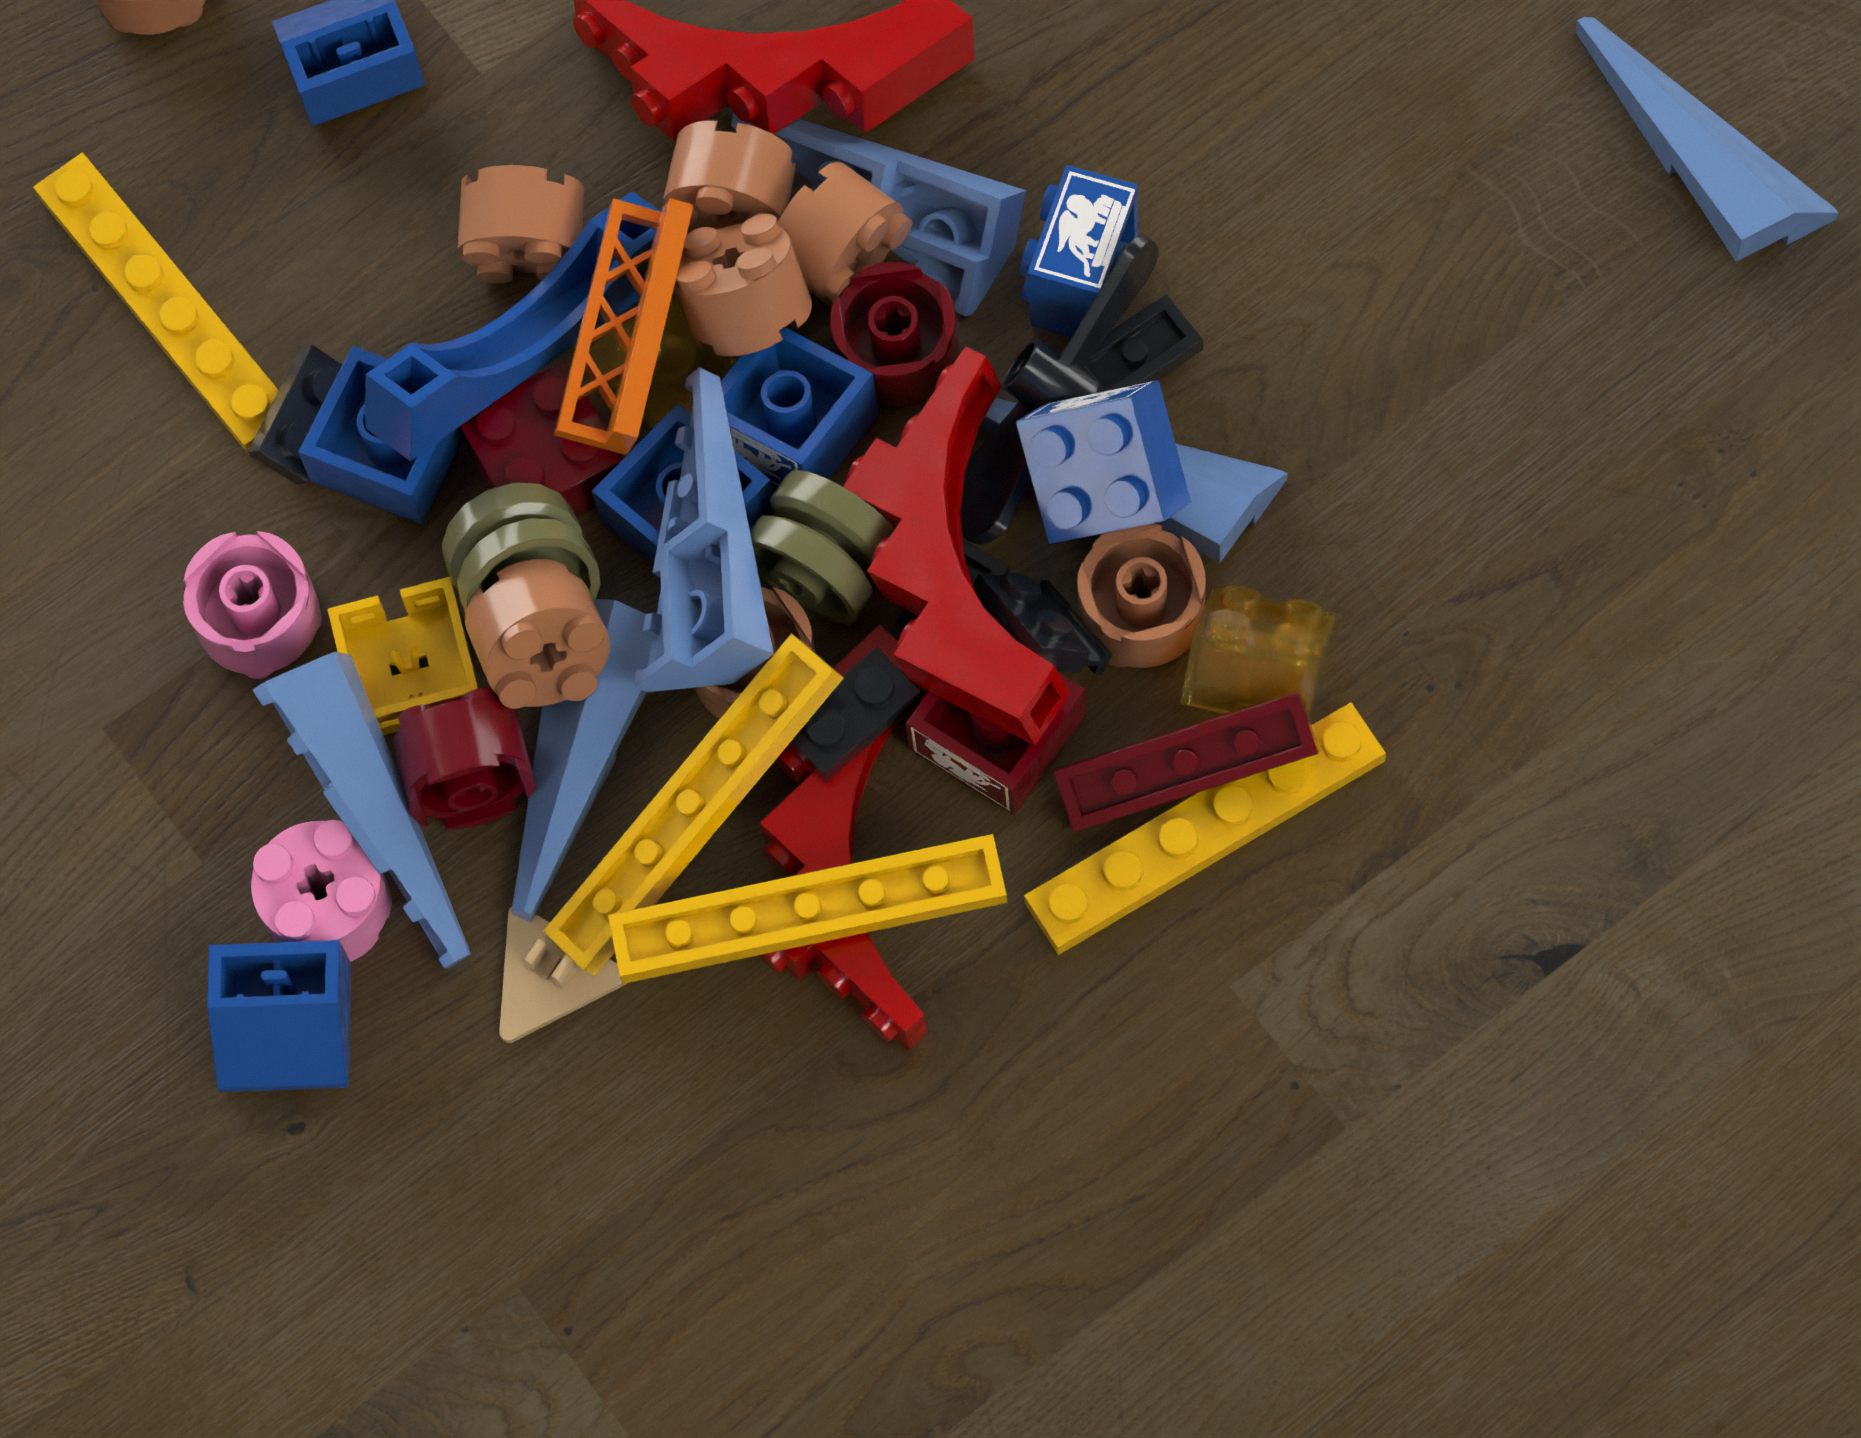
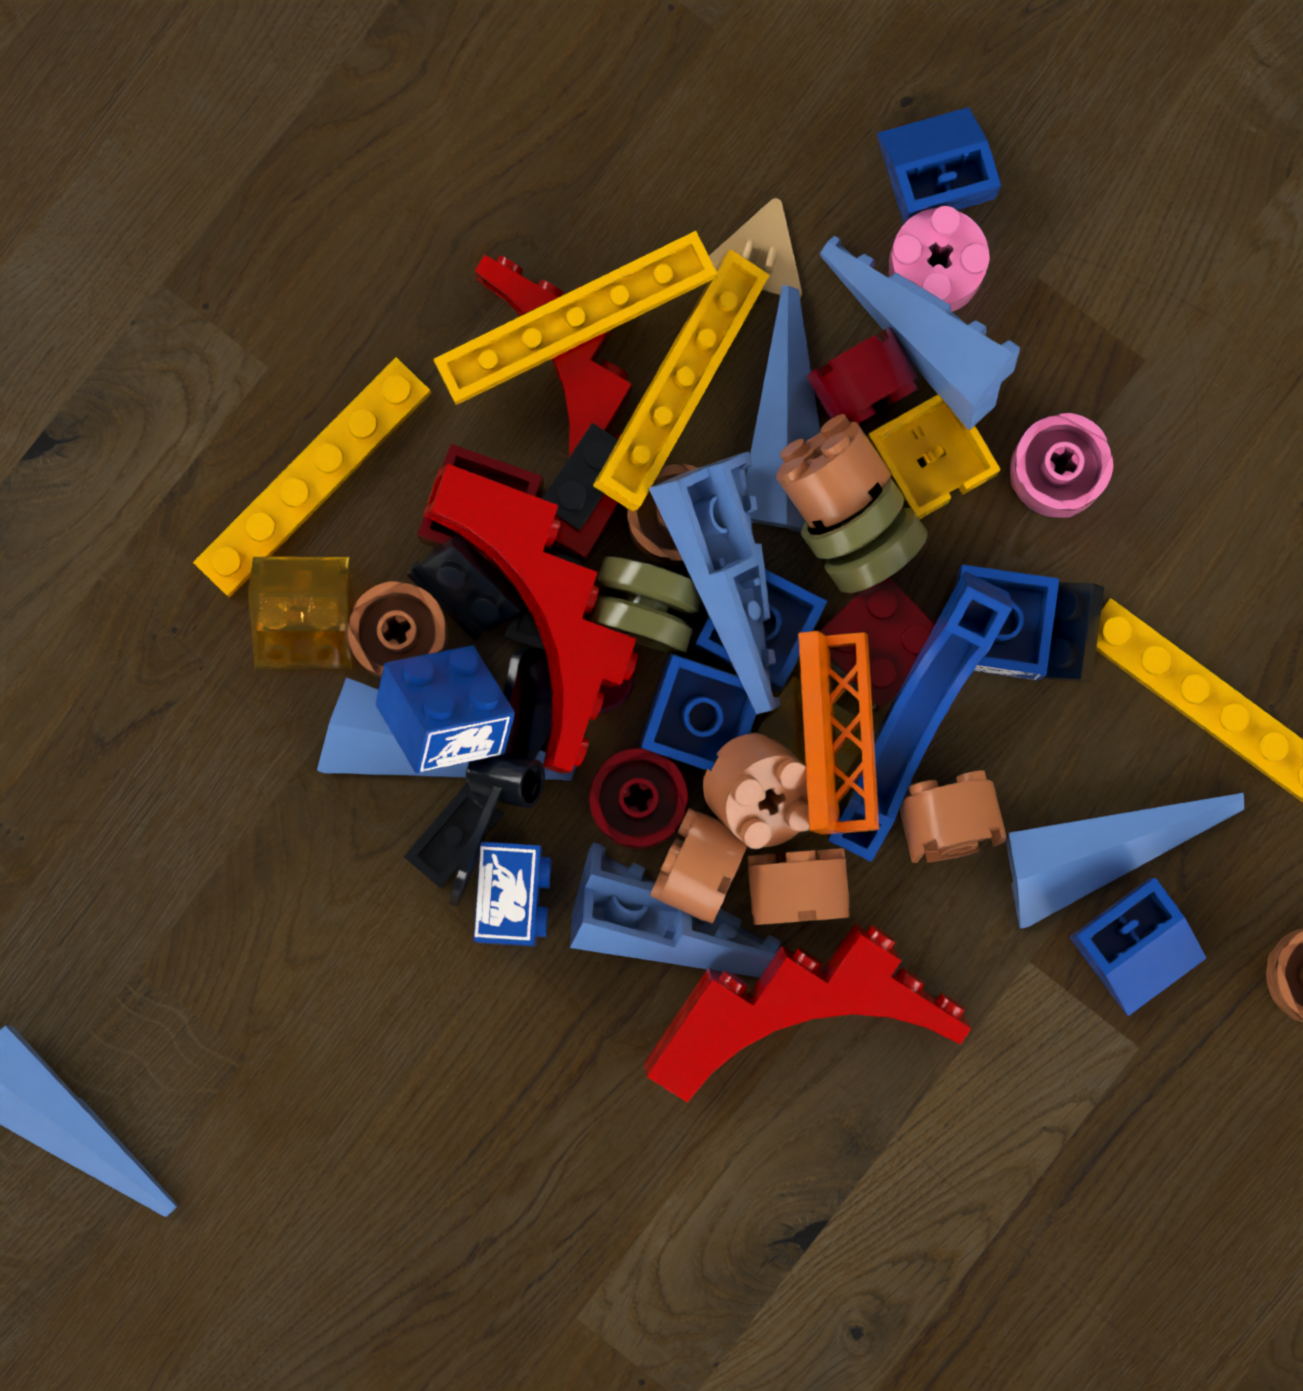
camera: 155 degrees right, 15 degrees up
(391, 164) = (1075, 858): none -> medium blue wedge
(1186, 761) = (333, 511): dark red plate -> none

